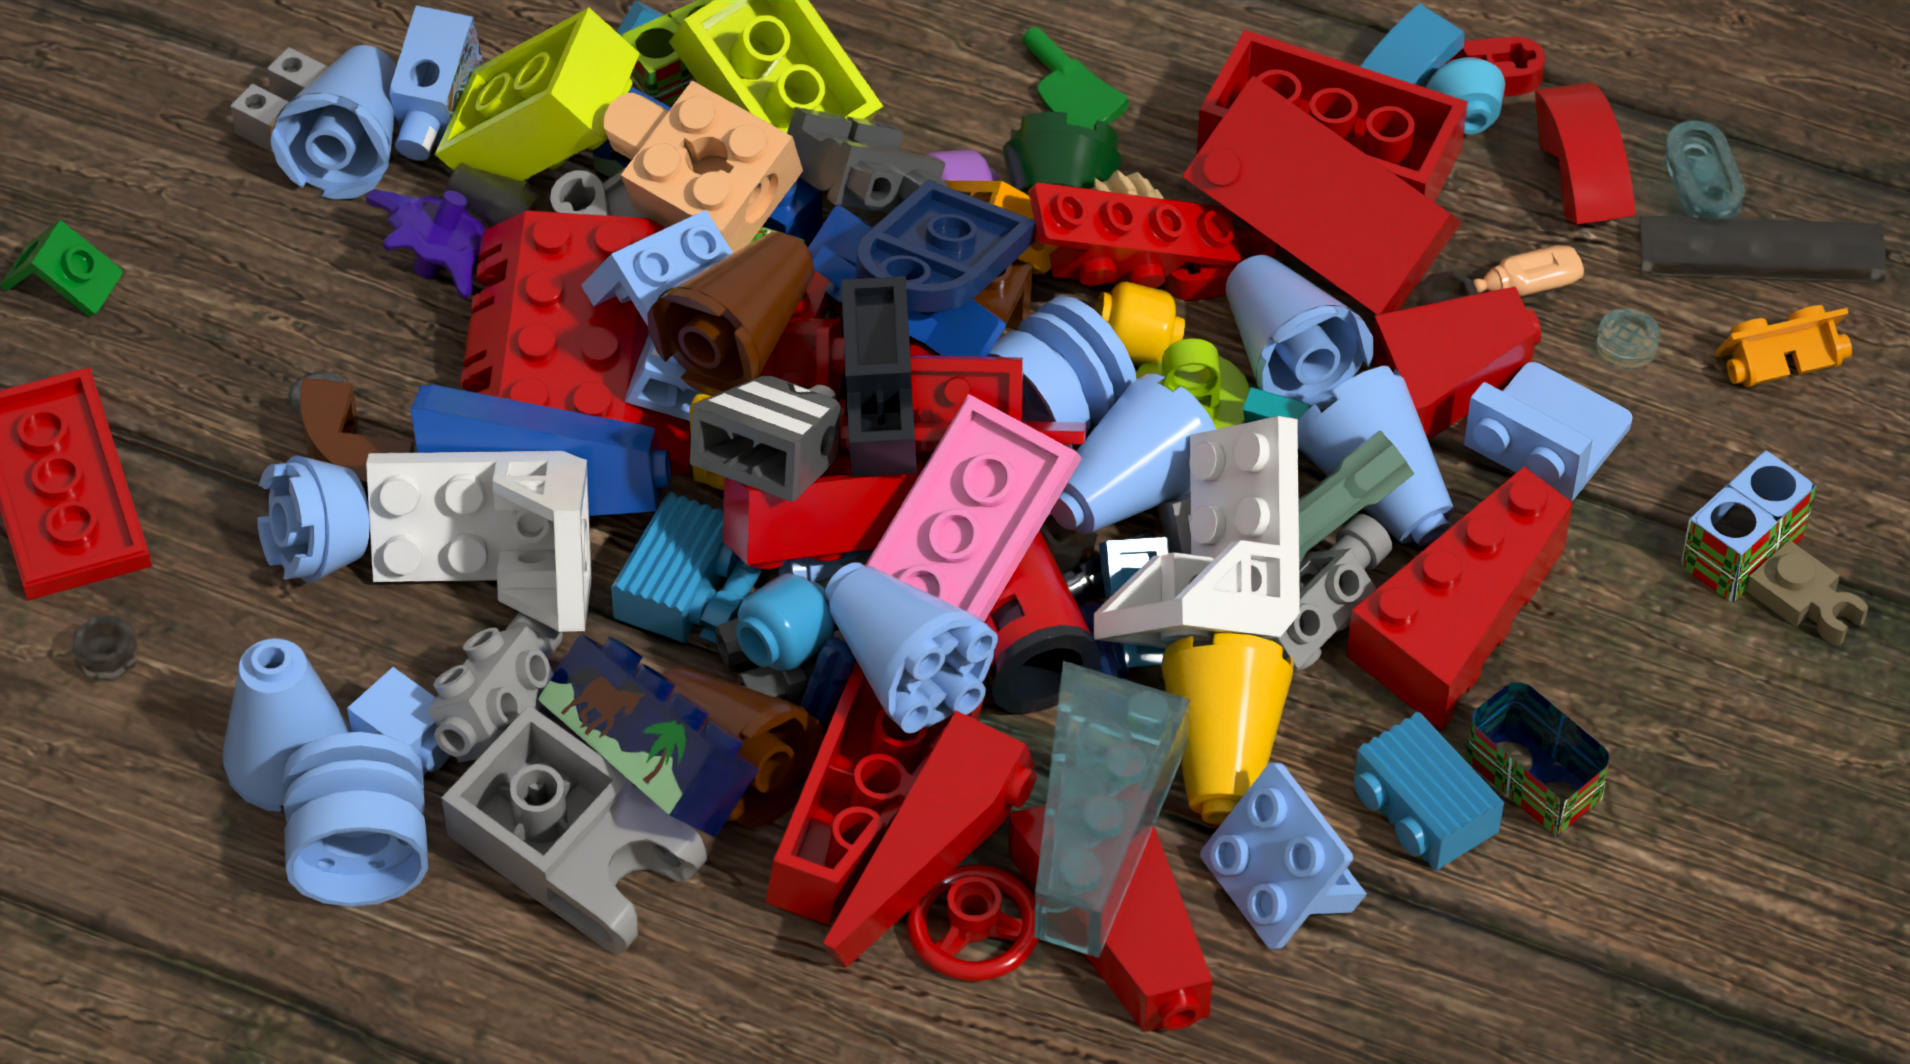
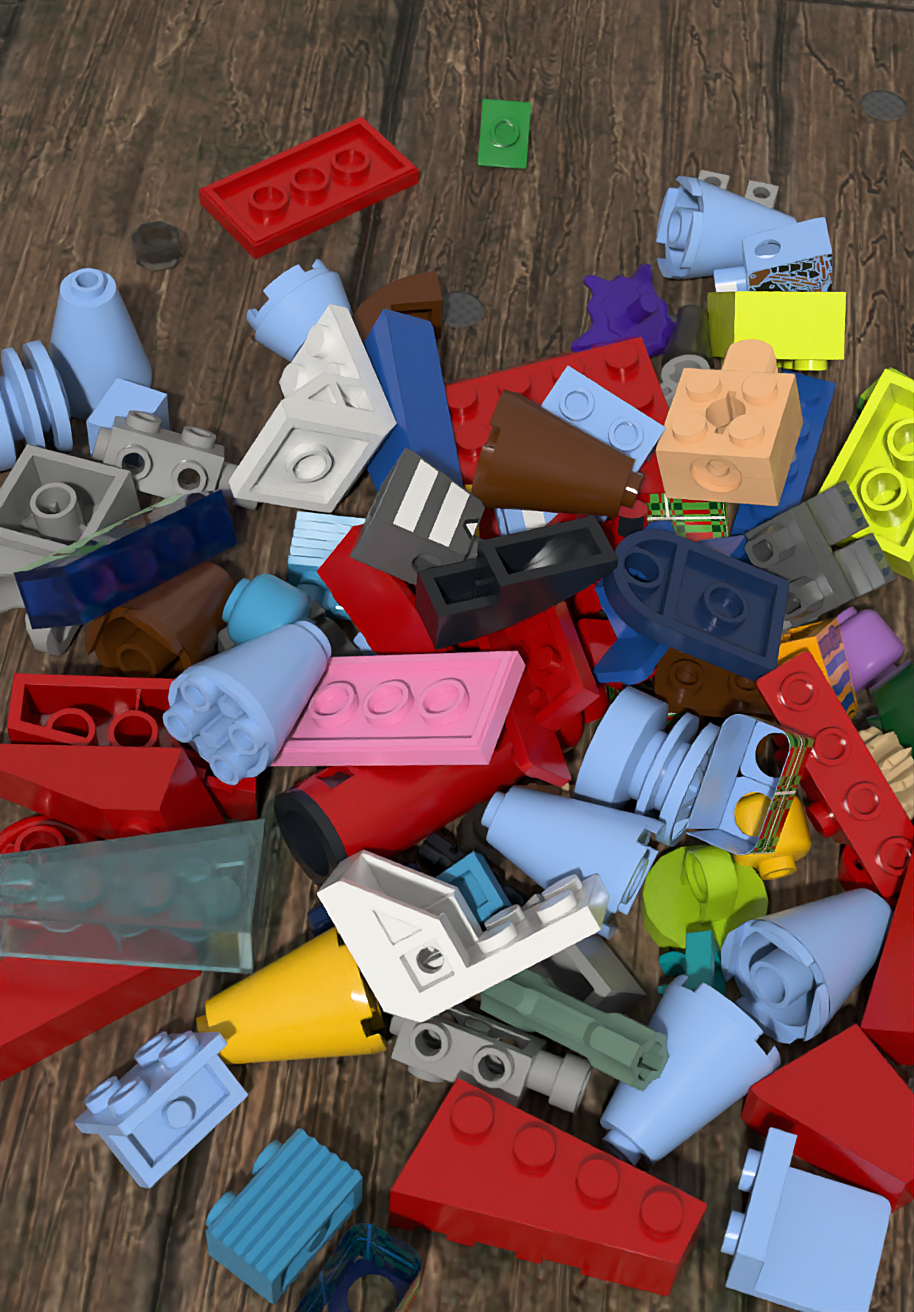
camera: 70 degrees right, 0 degrees up
(1181, 309) = (723, 789): none -> light blue piece

